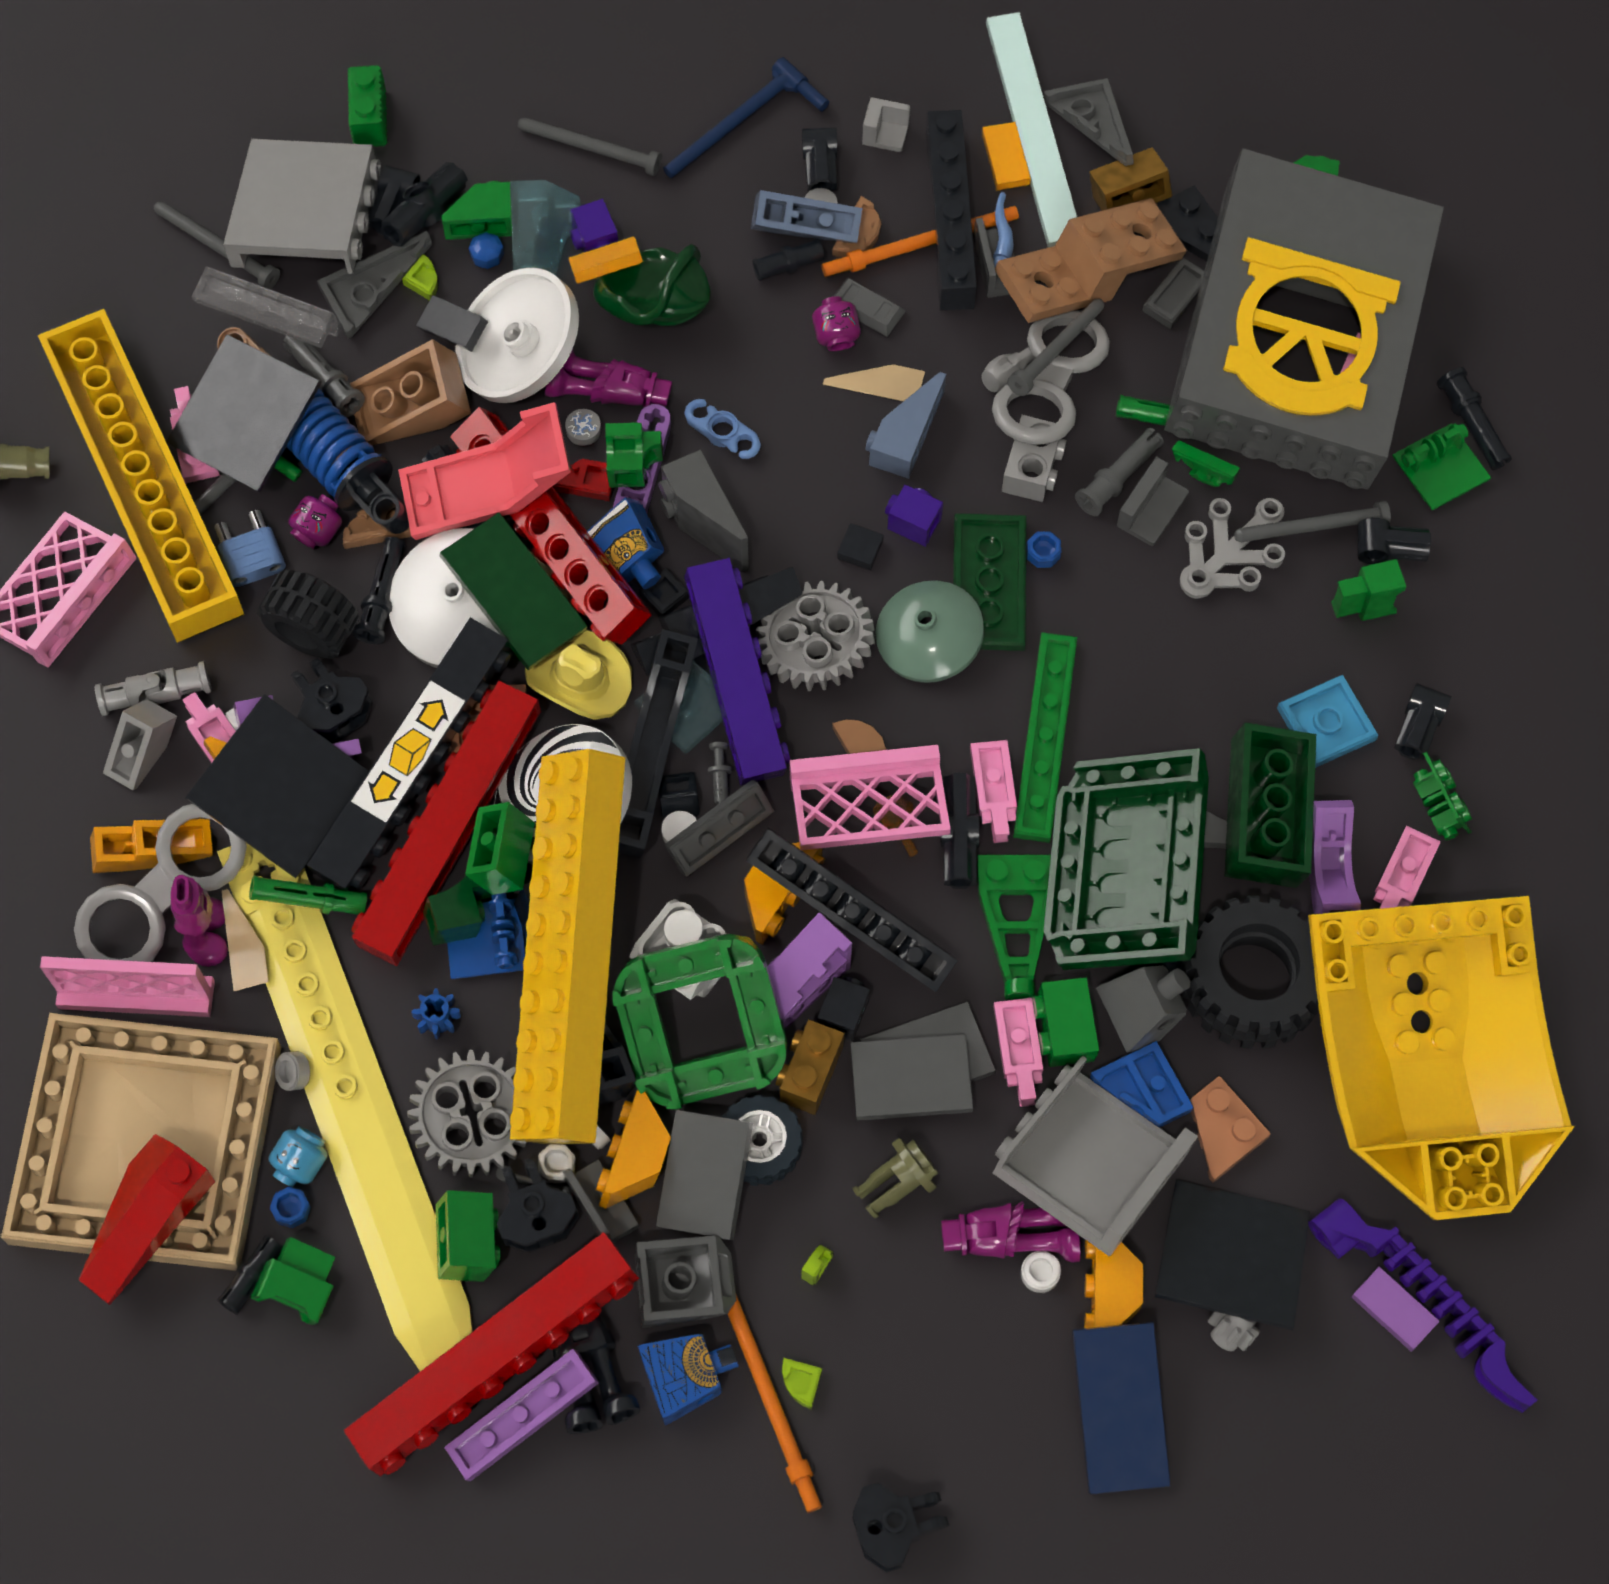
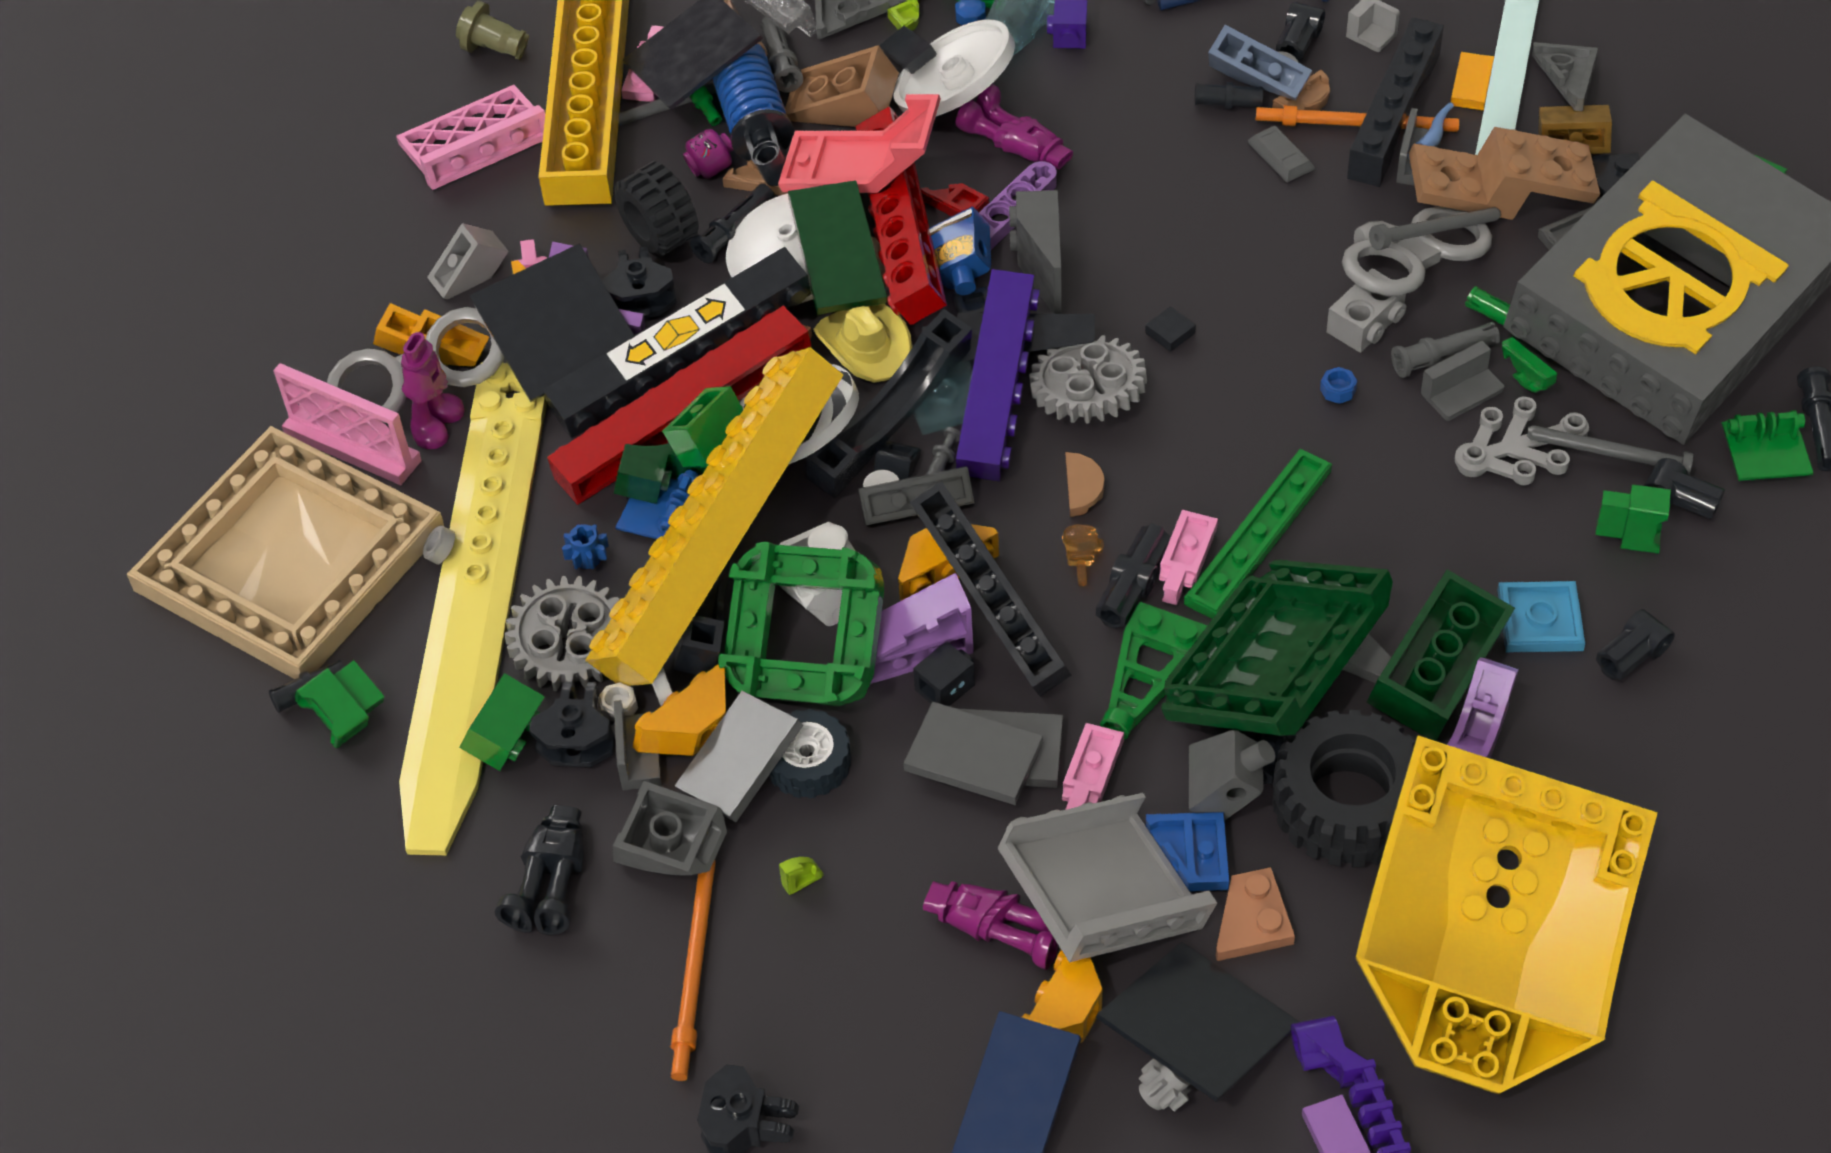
camera: 30 degrees right, 15 degrees down
(148, 1206) = (253, 596): red wedge -> none
(149, 687) = (507, 227): light grey piece -> none
(244, 947) = (458, 440): tan sticker -> none
(250, 554) = (636, 155): medium blue piece -> none
(290, 1207) = (373, 648): blue tile -> none
(297, 1156) = (402, 609): dark azure head -> none
(305, 895) = (528, 414): green pin -> none
(491, 1356) = (465, 820): red brick -> none
(521, 1415) = (463, 883): medium lavender plate -> none
(583, 427) = (977, 162): light grey tile -> none
(605, 260) = (1063, 42): light orange tile -> none
(630, 453) = (998, 182): green brick -> none
(658, 291) = (1098, 76): dark green piece -> none
(684, 1373) = (626, 913): blue torso -> none
(738, 433) = (1087, 193): medium blue piece -> none
(801, 1381) = (731, 967): lime tile -> none
(811, 1067) = (886, 710): pearl gold brick -> none
(836, 324) = (1243, 154): magenta head -> none
(859, 770) = (1066, 492): bright pink fence -> none
(886, 381) = (1268, 216): tan sticker -> none
(904, 429) = (1263, 250): sand blue slope -> none
(911, 1168) = (913, 829): olive piece -> none
(914, 514) = (1232, 318): dark purple brick -> none
(932, 649) = (1196, 412): sand green dish -> none
(992, 569) = (1273, 396): dark green tile -> none
(1040, 1271) = (1006, 967): white tile -> none
(1066, 1022) = (1145, 760): green brick -> none
(1406, 869) = (1561, 756): bright pink hinge -> none
(1437, 787) = (1619, 715): green hinge -> none

